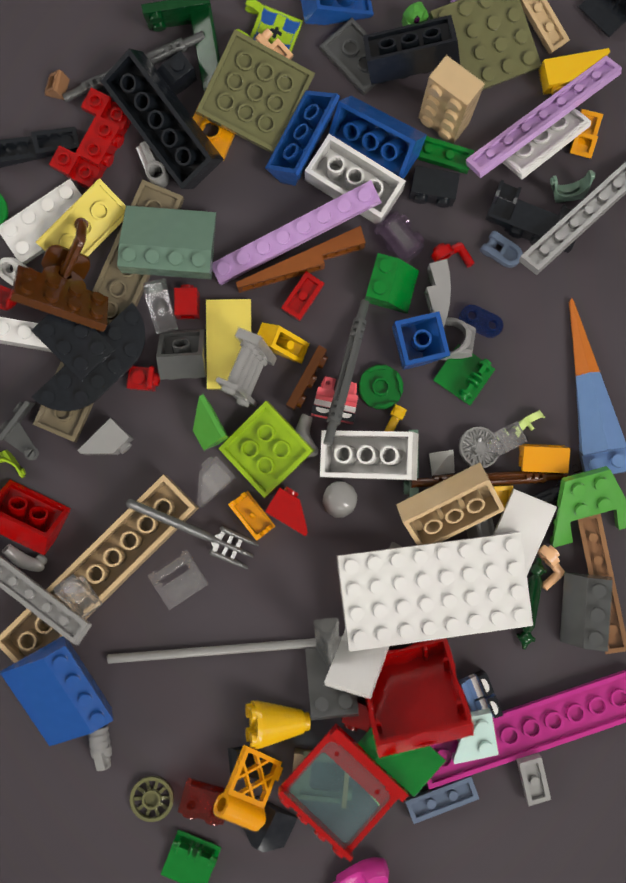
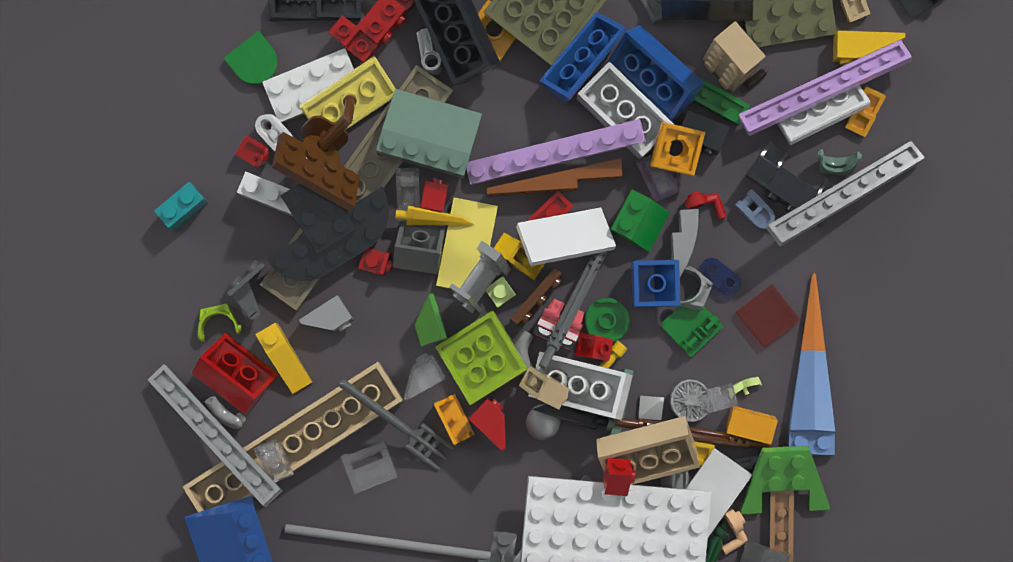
camera: 10 degrees right, 0 degrees up
(71, 490) = (284, 357): none -> yellow slope
(179, 324) = (421, 216): none -> yellow bar
(271, 381) = (500, 292): none -> yellowish green plate
(322, 312) = (565, 236): none -> white tile
(334, 464) = (544, 387): none -> tan slope
(369, 486) = (574, 415): none -> black bar
(373, 415) = (593, 347): none -> red bracket
(426, 195) = (687, 160): none -> light orange piece
(426, 537) = (618, 477): none -> red brick
(473, 126) = (755, 79): none -> dark brown piece
(535, 349) = (767, 315): none -> clear red tile

